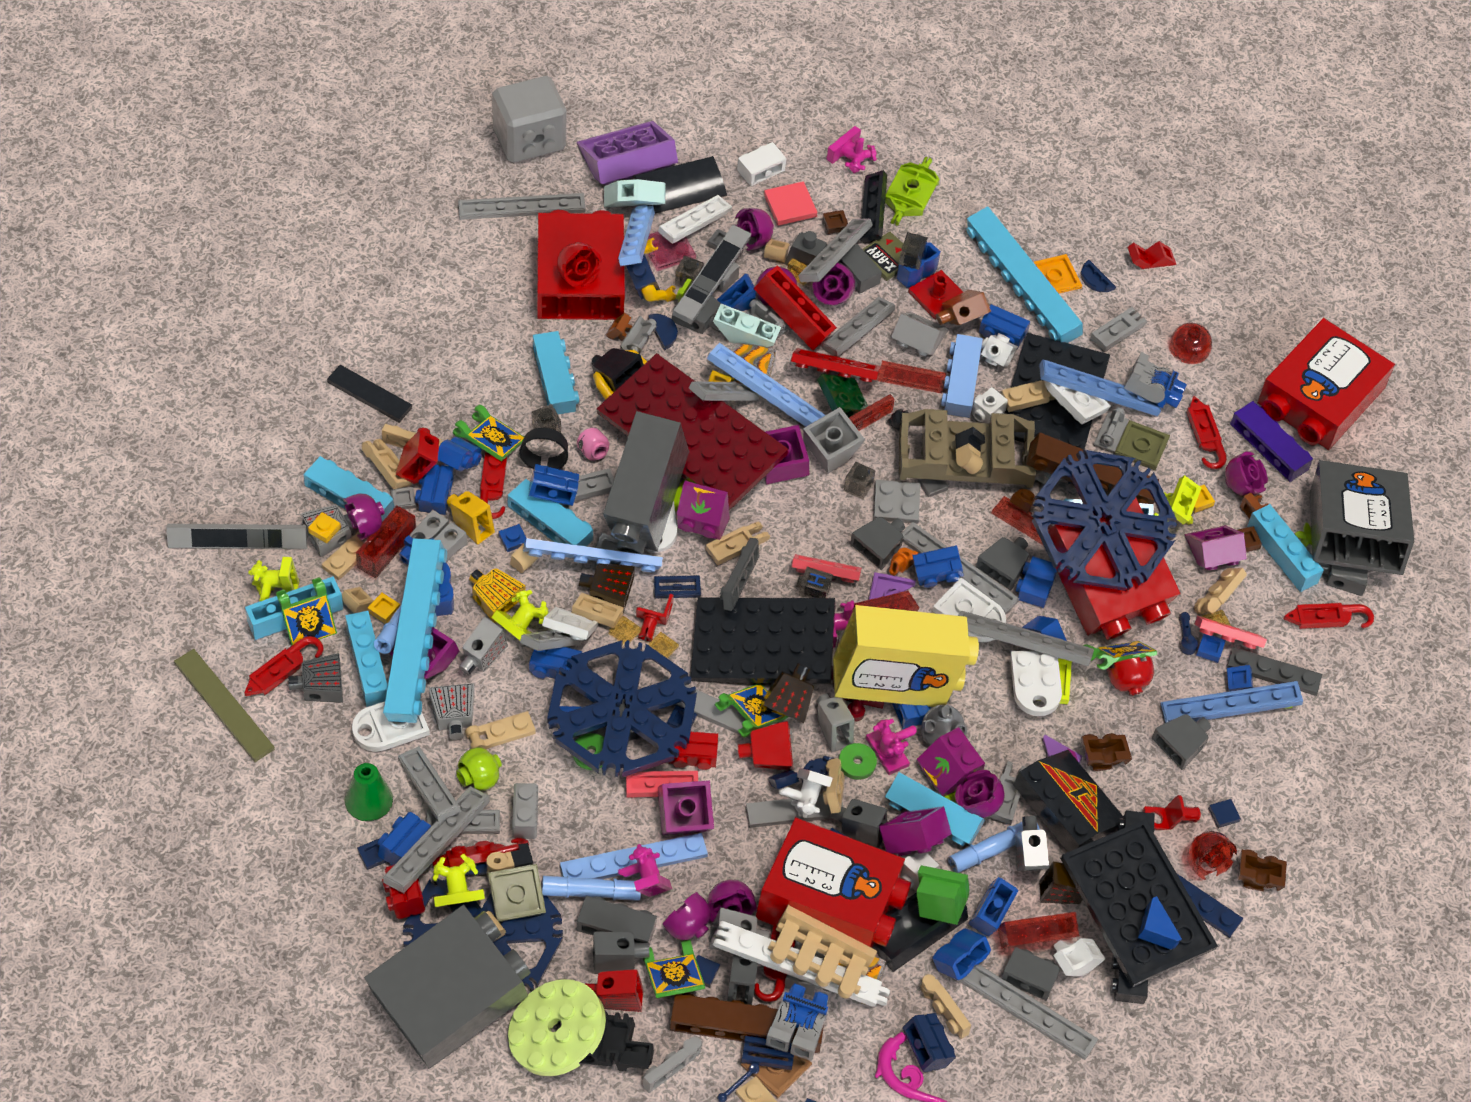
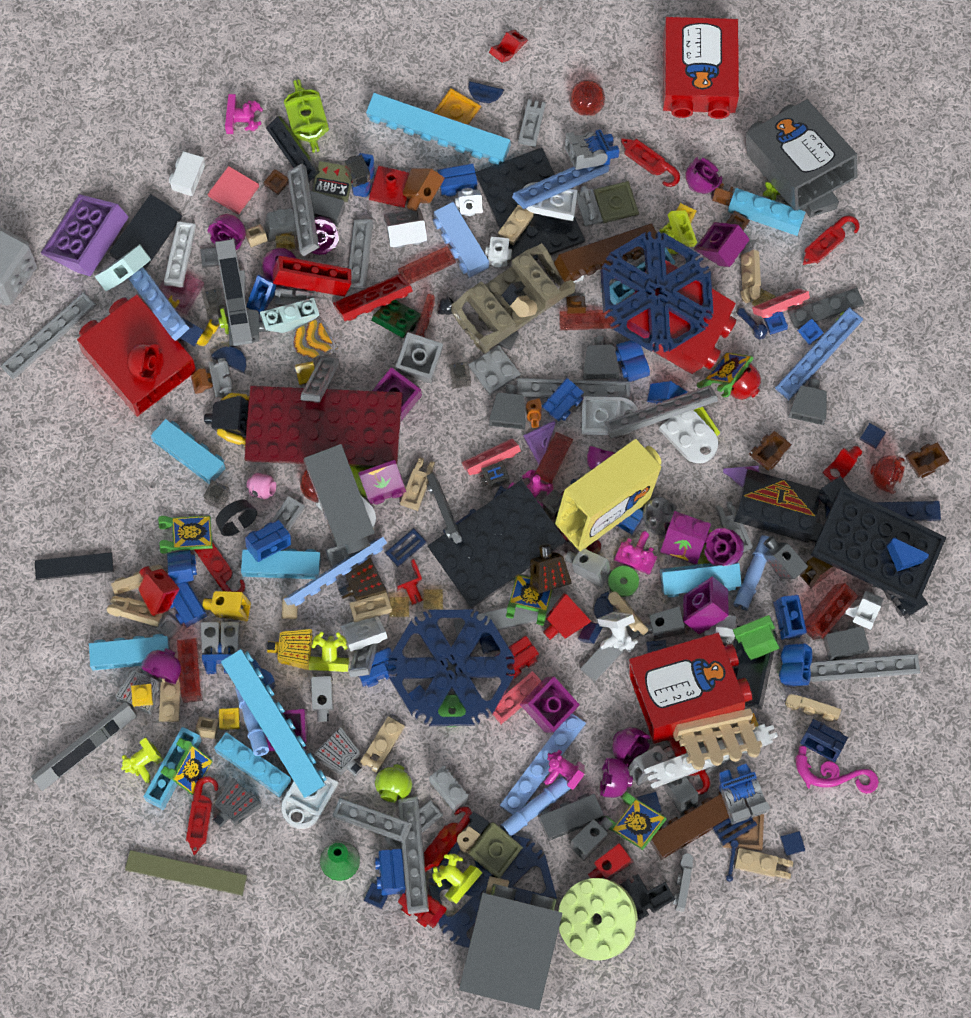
camera: 35 degrees left, 15 degrees up
(512, 537) = (267, 597): blue plate -> none
(764, 385) = (342, 352): light blue plate -> none
(1271, 441) = (696, 135): dark purple brick -> none

